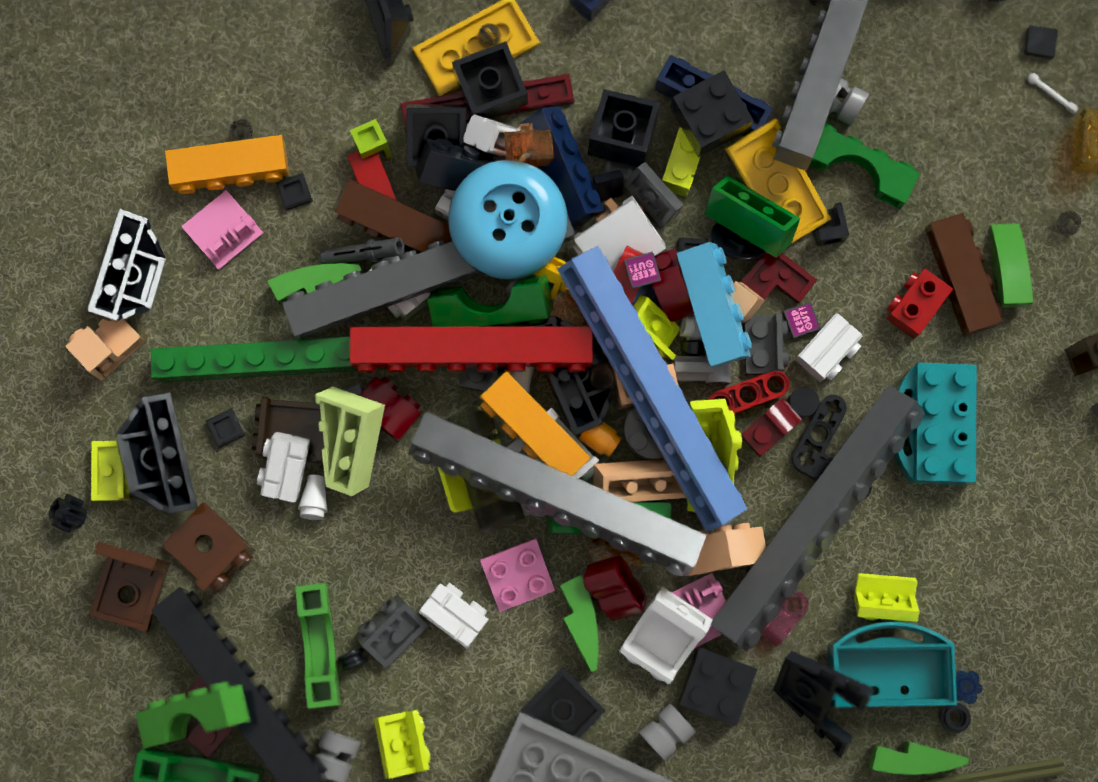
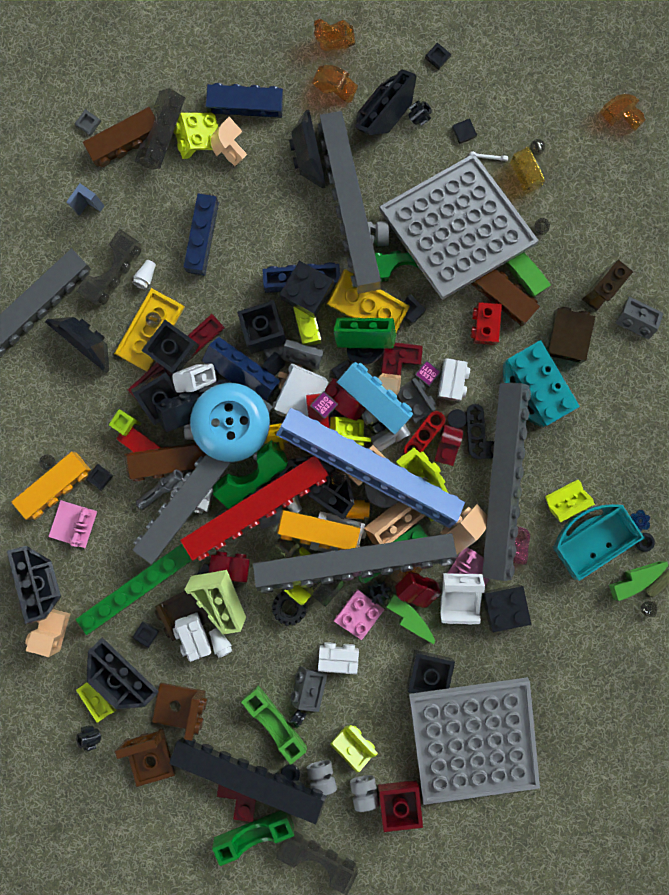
camera: 25 degrees left, 5 degrees up
(214, 710) = (239, 800): bright green arch -> none
(301, 723) = (291, 772): none -> black tile
(308, 277) = (139, 522): bright green slope -> none
(415, 515) = (283, 617): none -> black tyre
(529, 145) = (215, 372): clear orange brick -> none
(562, 562) = (379, 587): none -> black gear
(667, 732) = (494, 650): light grey wheel -> none
(811, 691) = (563, 579): black wing -> none
(958, 155) = (458, 226): none -> light grey plate
(1020, 385) = (571, 334): none -> dark brown panel

